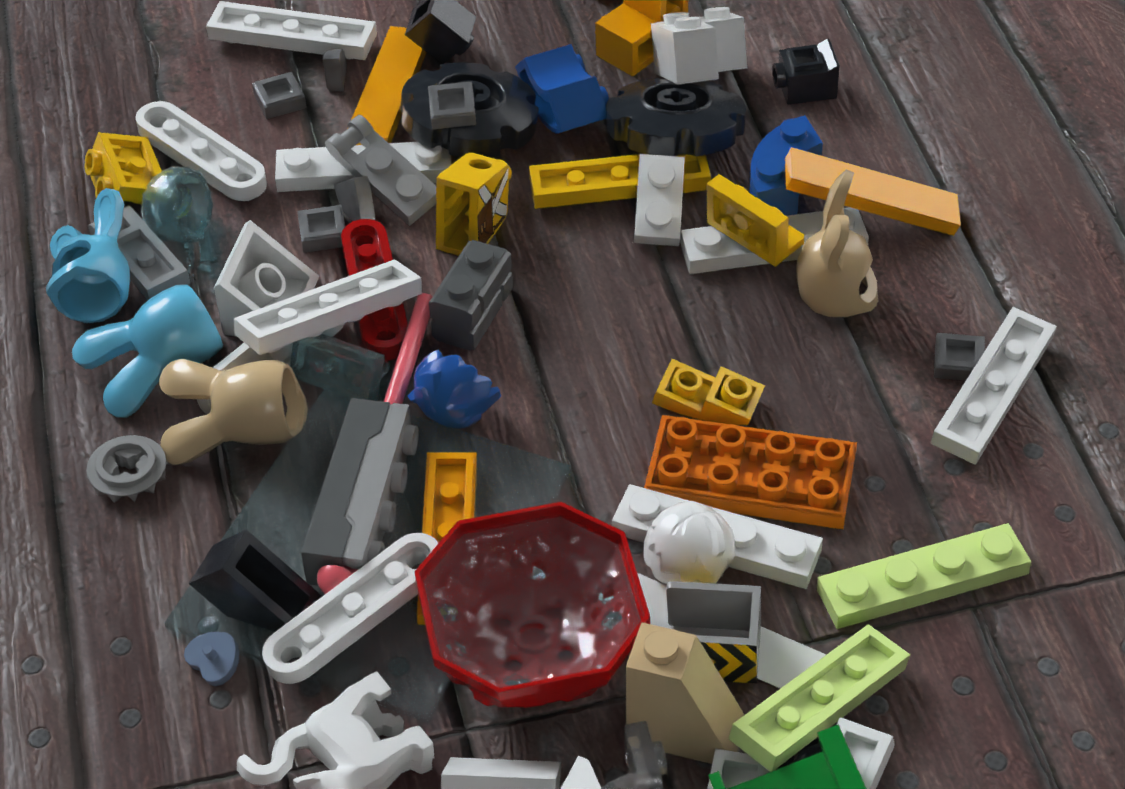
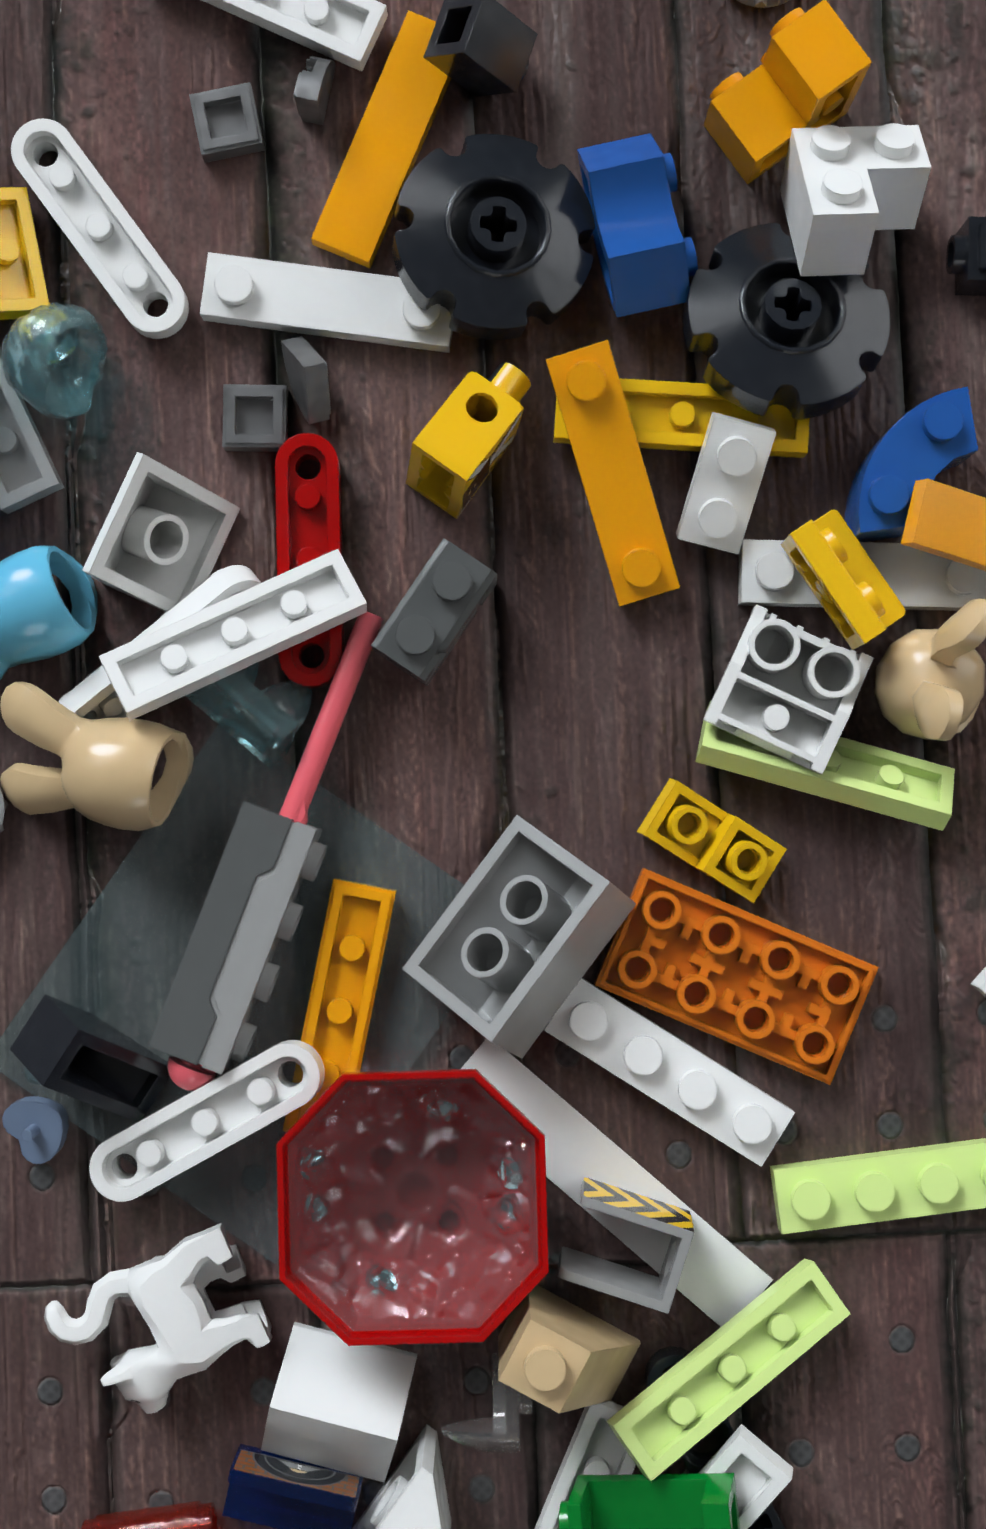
camera: 10 degrees right, 40 degrees up
(389, 173) = (352, 339): light grey plate -> none
(451, 105) = (463, 265): flat silver tile -> none
(451, 391) = (379, 796): blue hair -> none
(580, 206) = (612, 472): none -> light orange plate
(581, 452) = (518, 937): none -> light grey slope
(689, 544) = (627, 1112): white hair -> none
(735, 288) = (788, 690): none -> white slope
(798, 336) = (854, 776): none -> yellowish green plate

